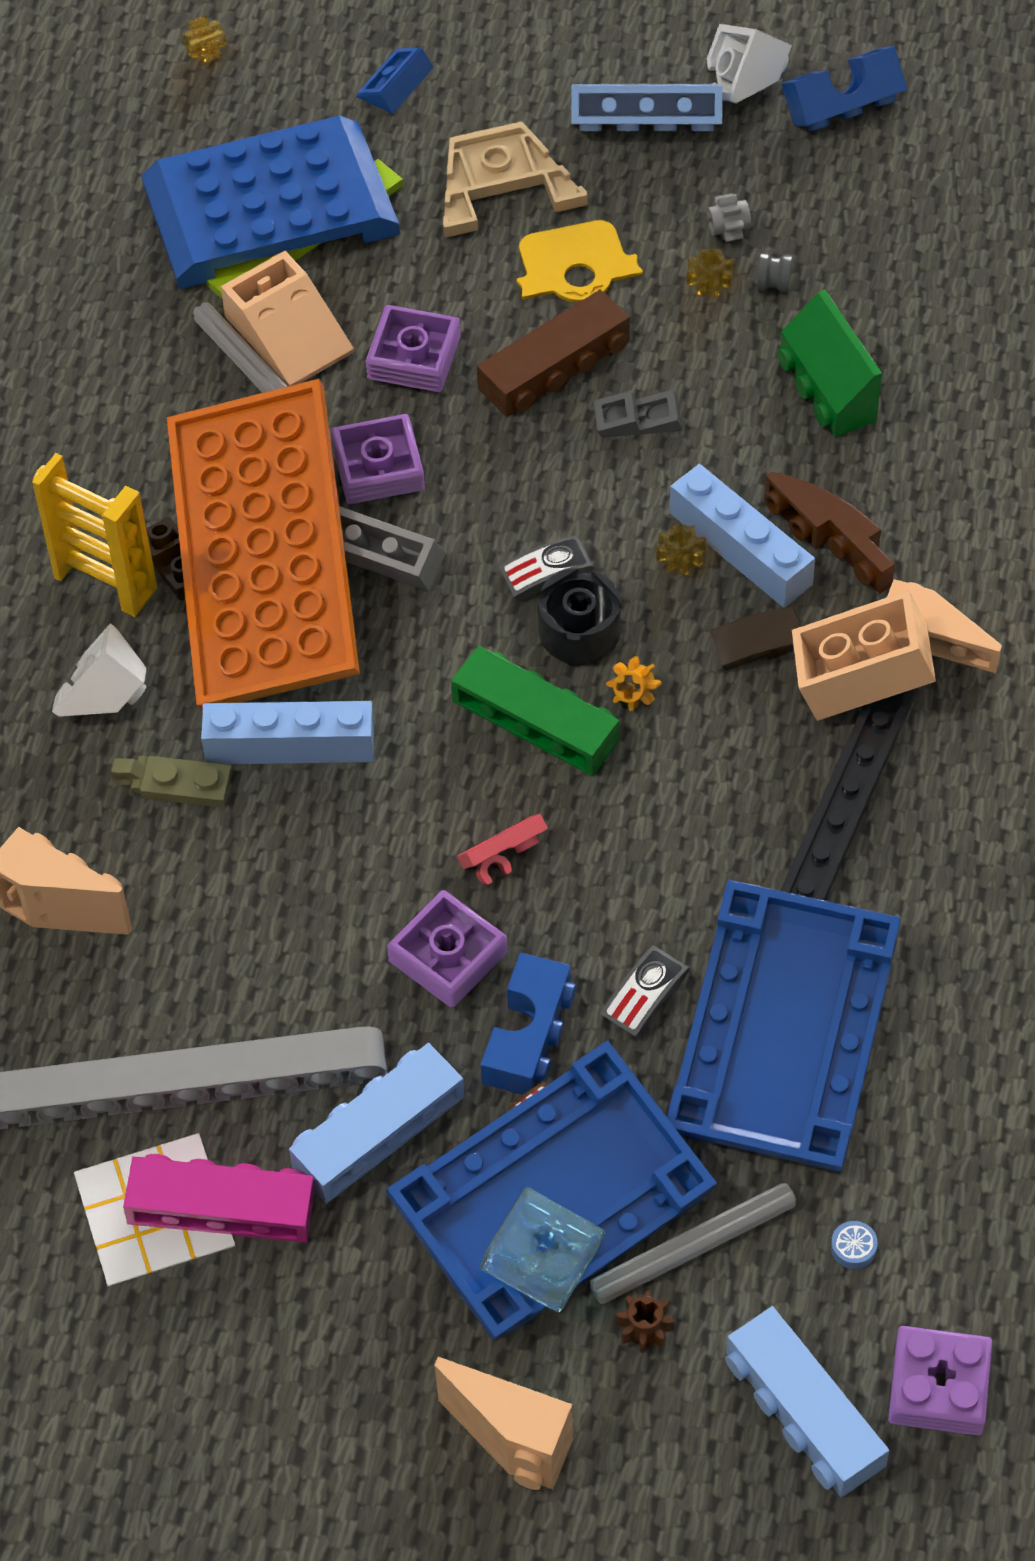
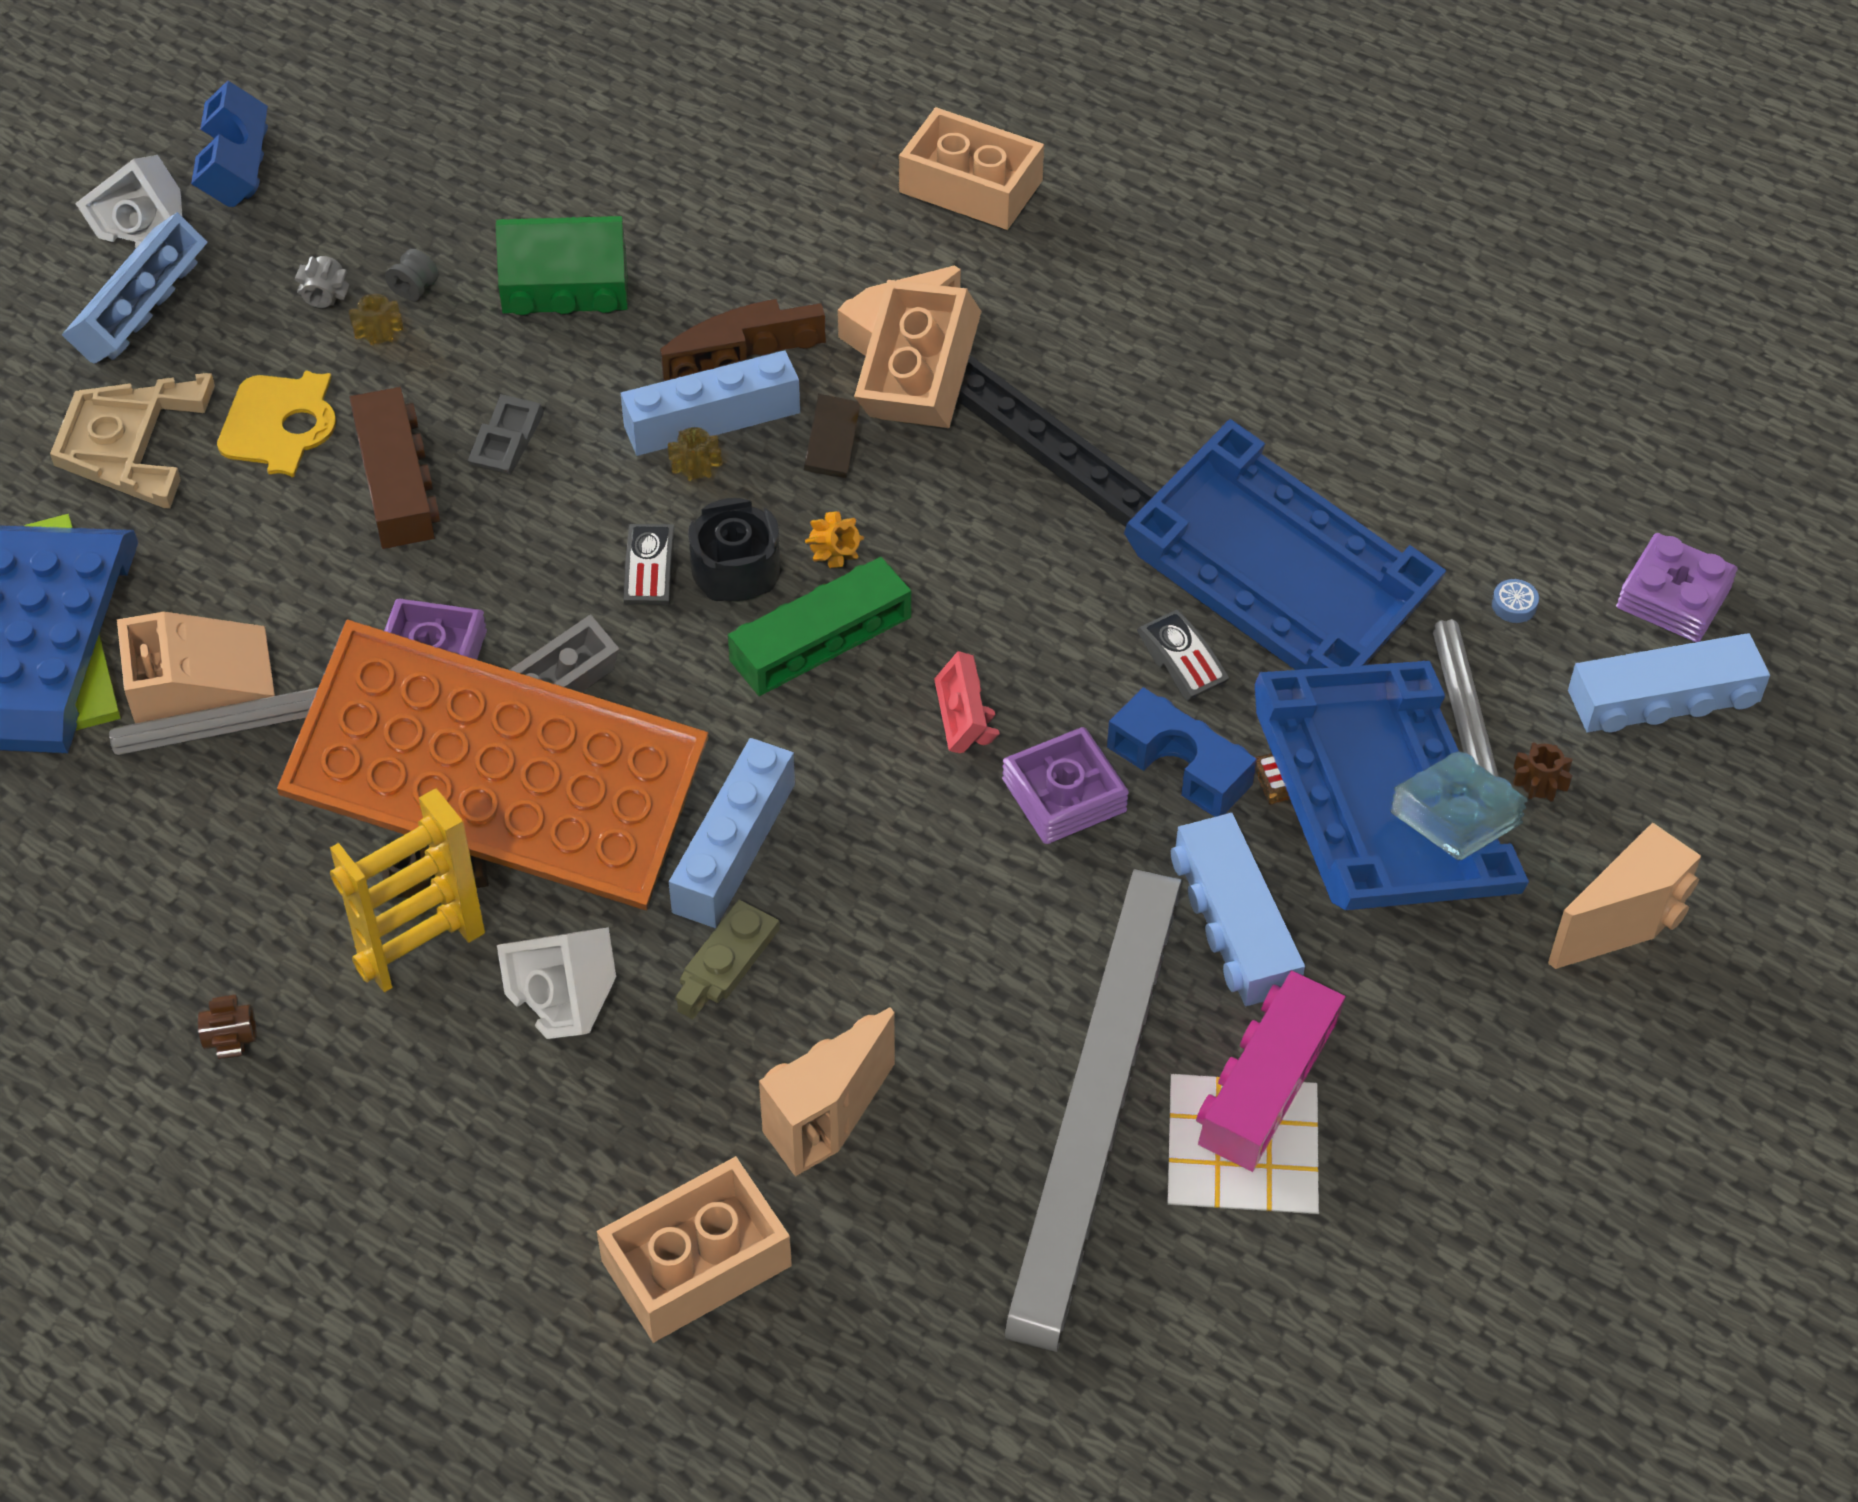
camera: 70 degrees left, 5 degrees down
(413, 348) = (306, 573): medium lavender brick -> none

